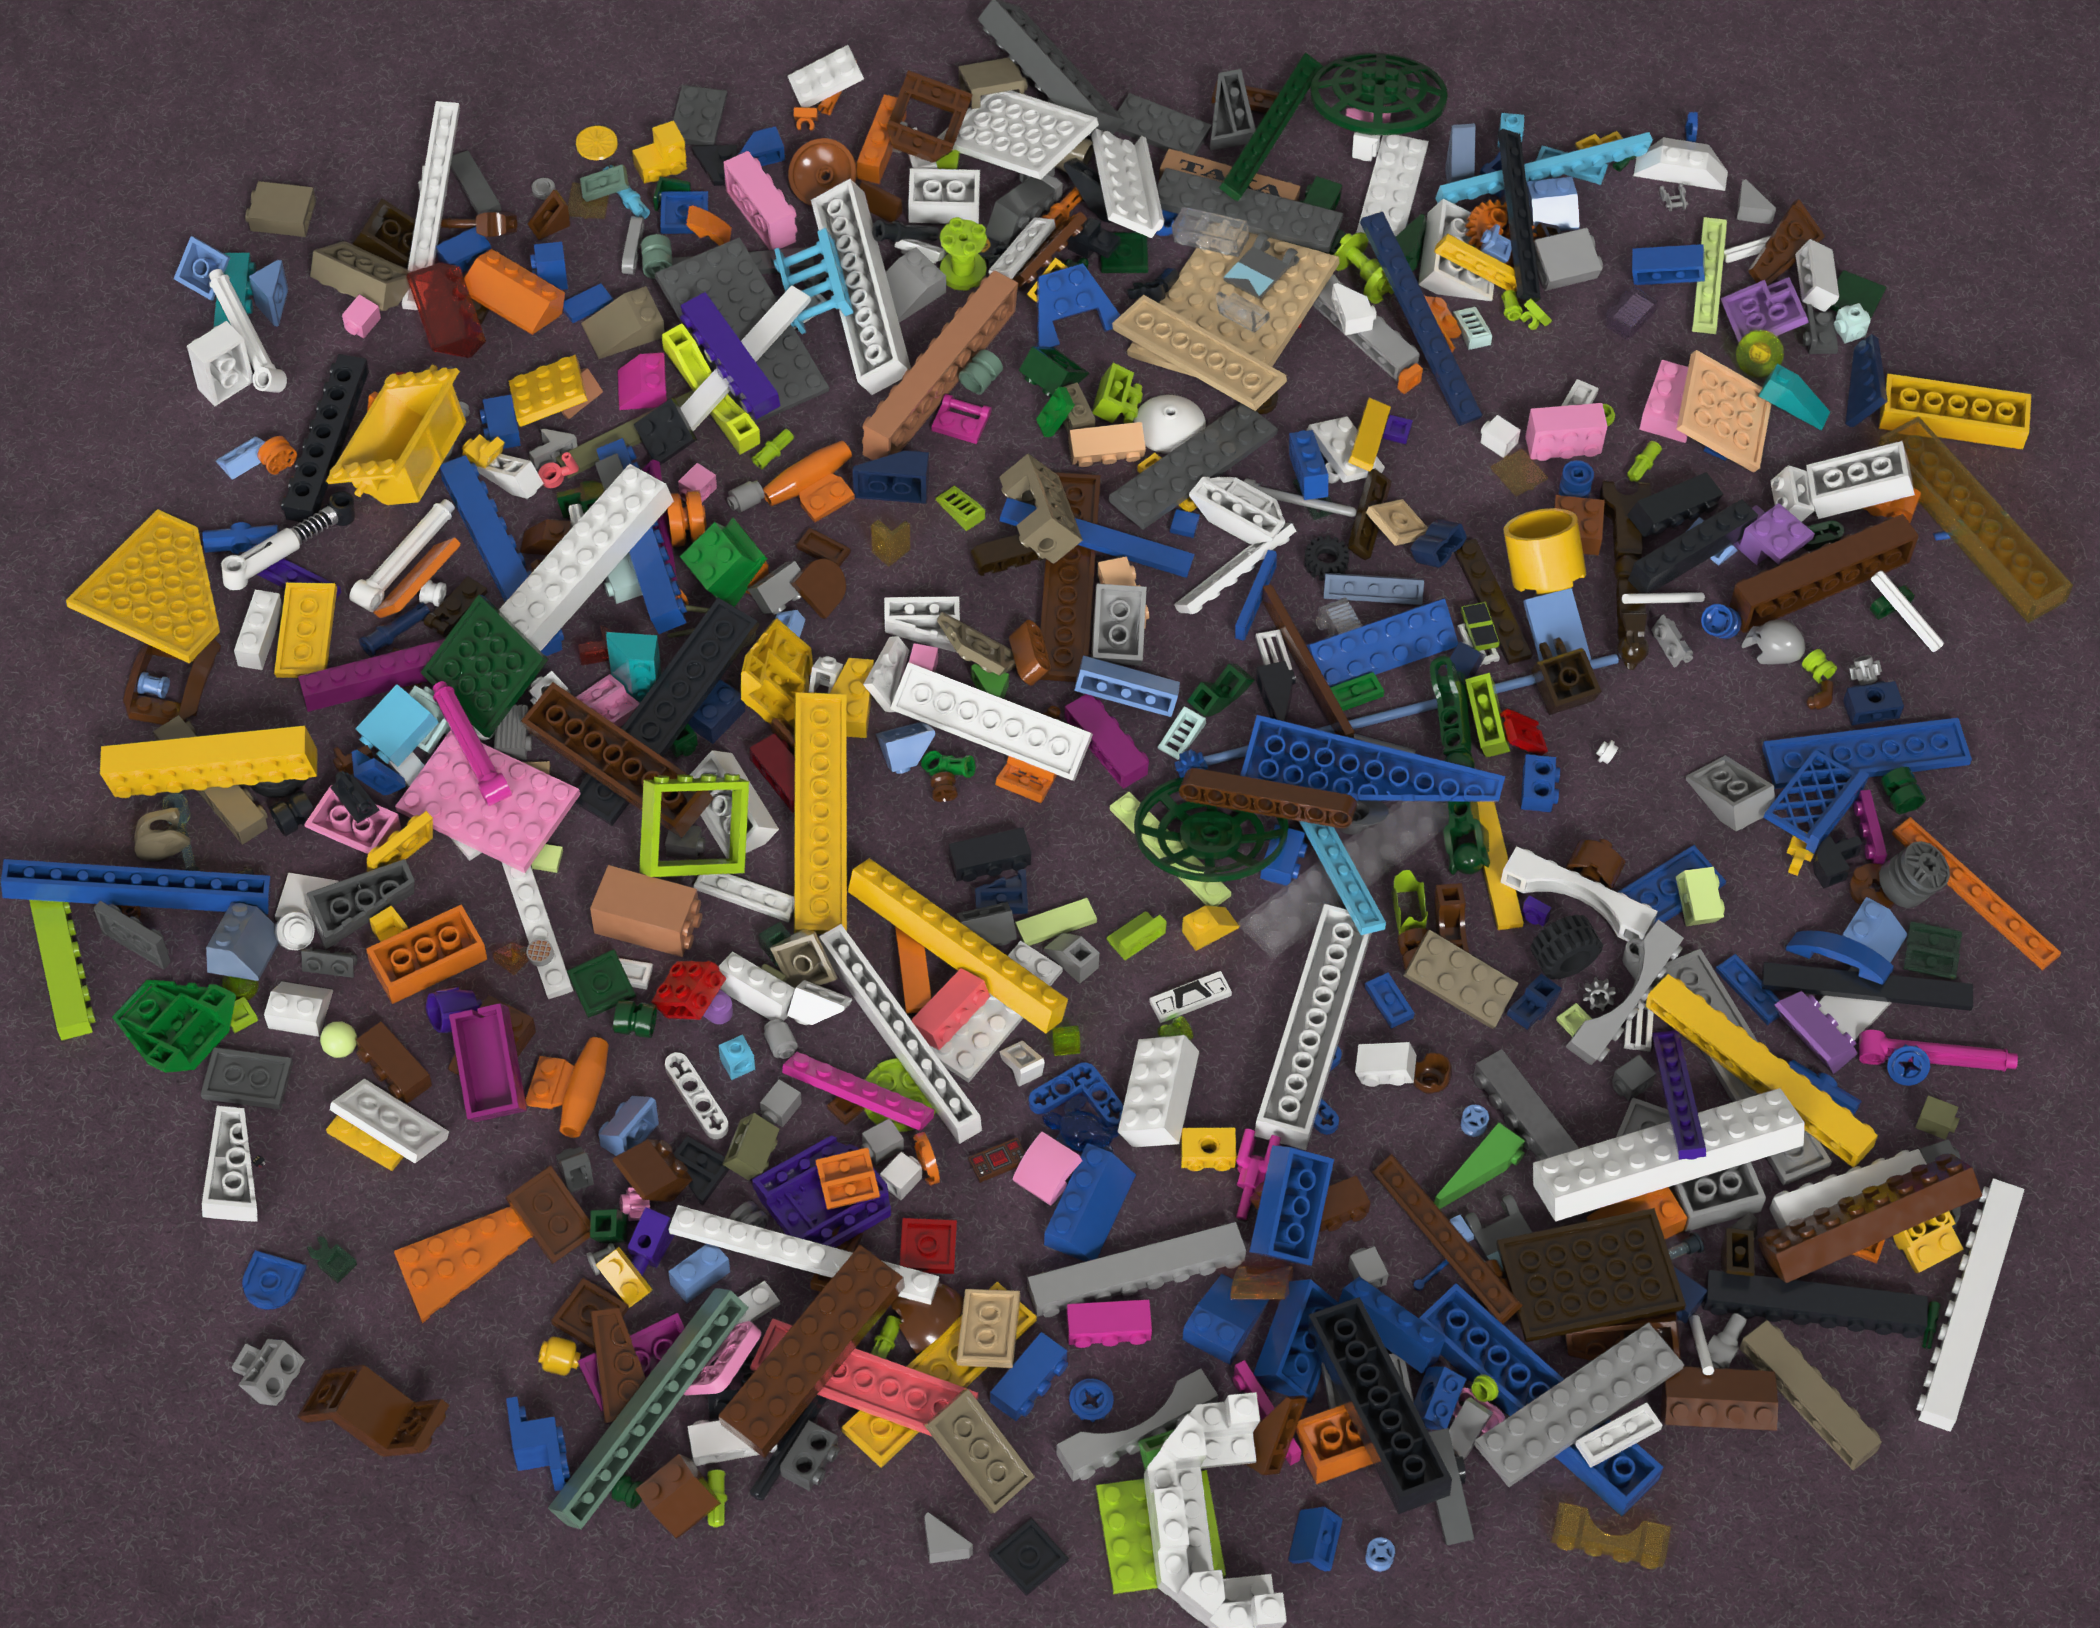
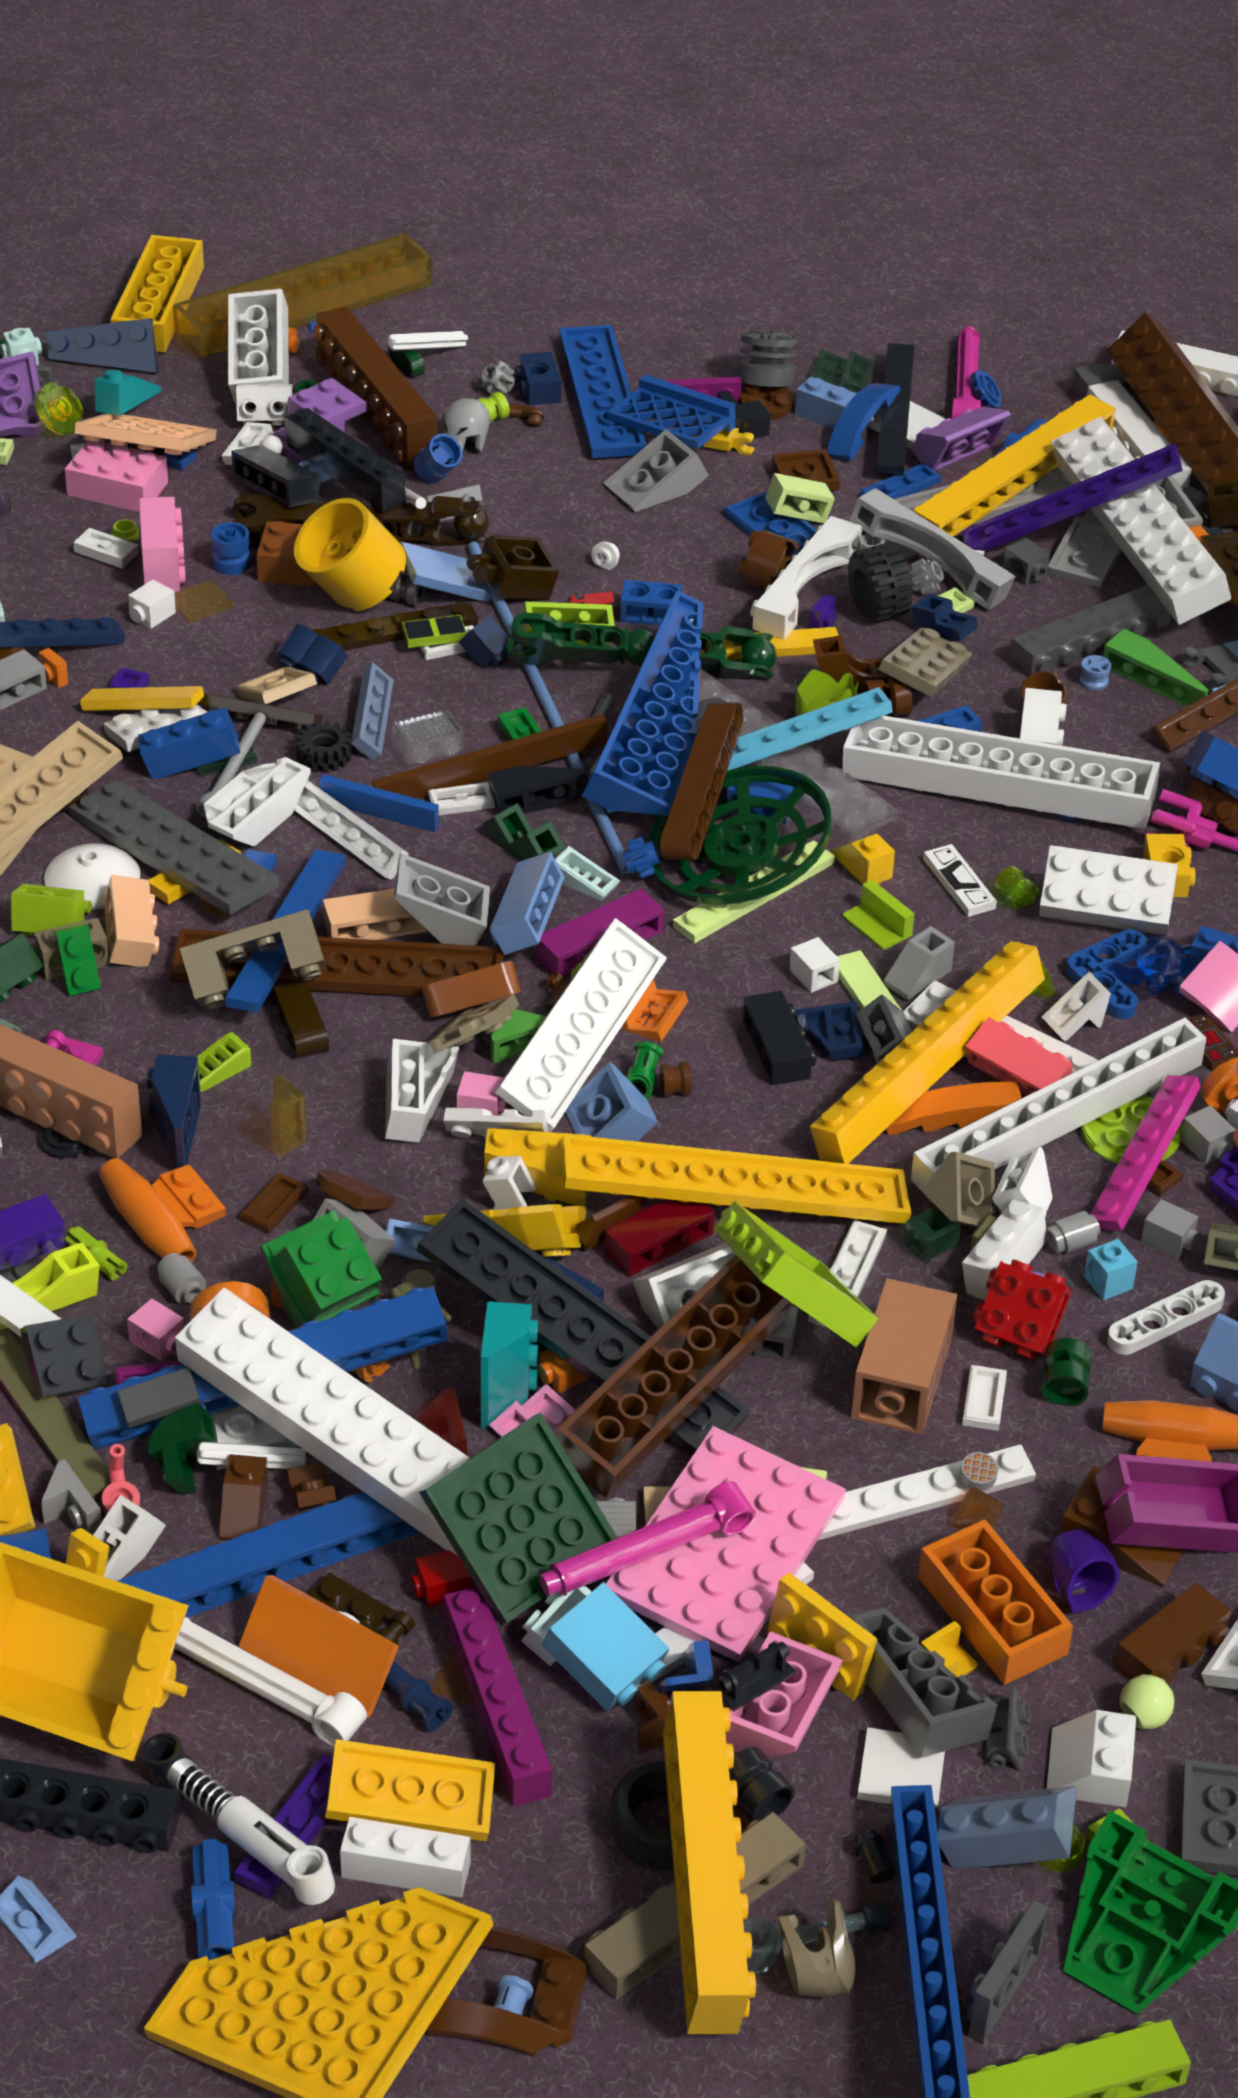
camera: 90 degrees left, 15 degrees down
(276, 453) = (49, 1855): orange wheel -> none
(294, 931) = (967, 1770): white plate -> none
(601, 983) = (1012, 1413): dark green tile -> none
(1075, 882) = (814, 964): none -> white brick
(1385, 643) = (457, 695): blue plate -> none
(1644, 461) = (198, 507): lime axle -> none
(1737, 489) = (253, 435): none -> white plate
(1757, 910) = (808, 465): none -> reddish brown plate
(1903, 790) = (658, 364): dark green wheel -> none
(1938, 1117) = (1042, 381): olive brick -> none
(1984, 900) = (801, 326): orange tile -> none

